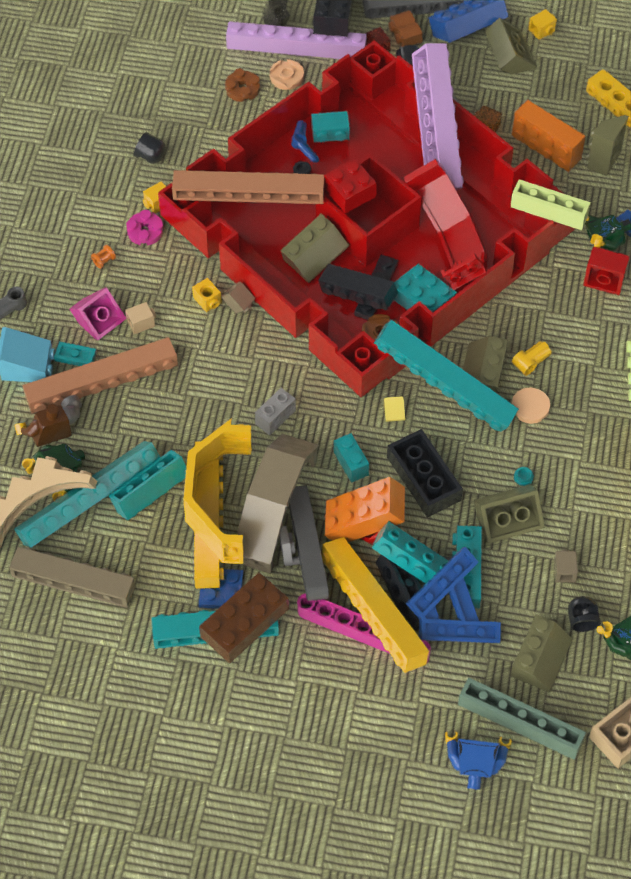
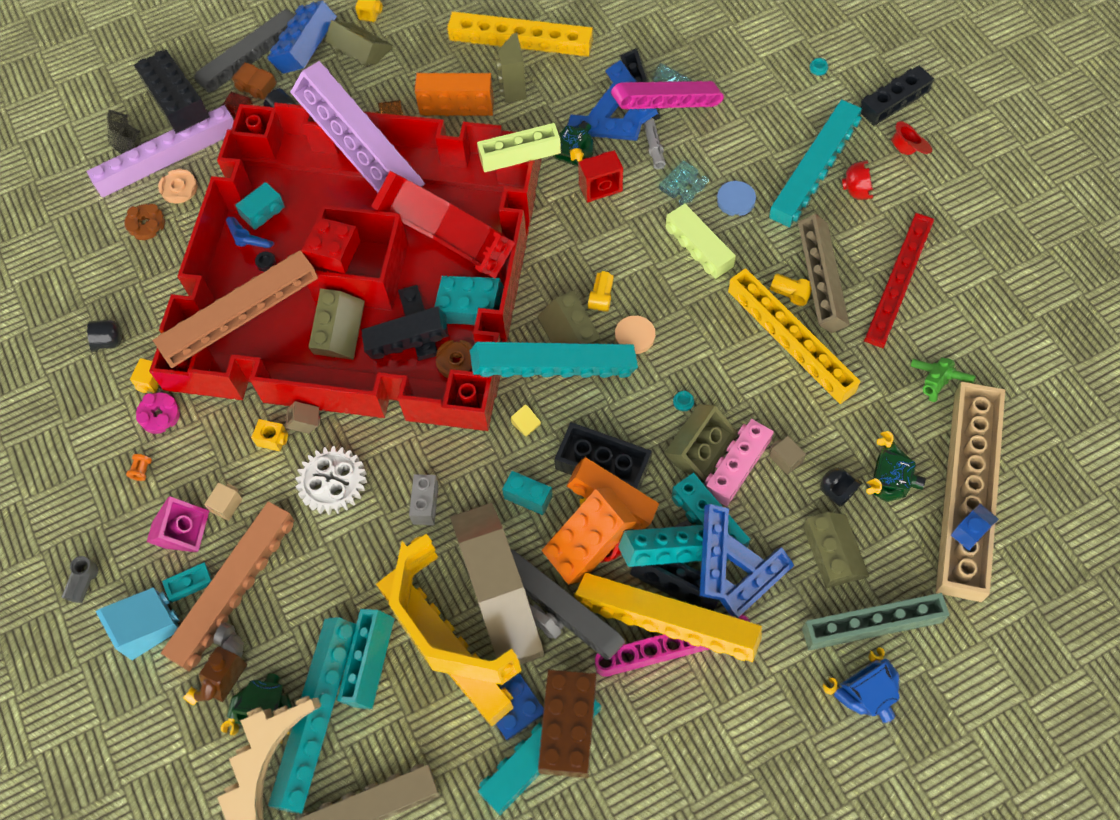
camera: 35 degrees left, 5 degrees up
(237, 346) = (338, 463): none -> white gear
(417, 514) = (590, 476): none -> orange brick
(524, 545) = (739, 461): none -> bright pink brick

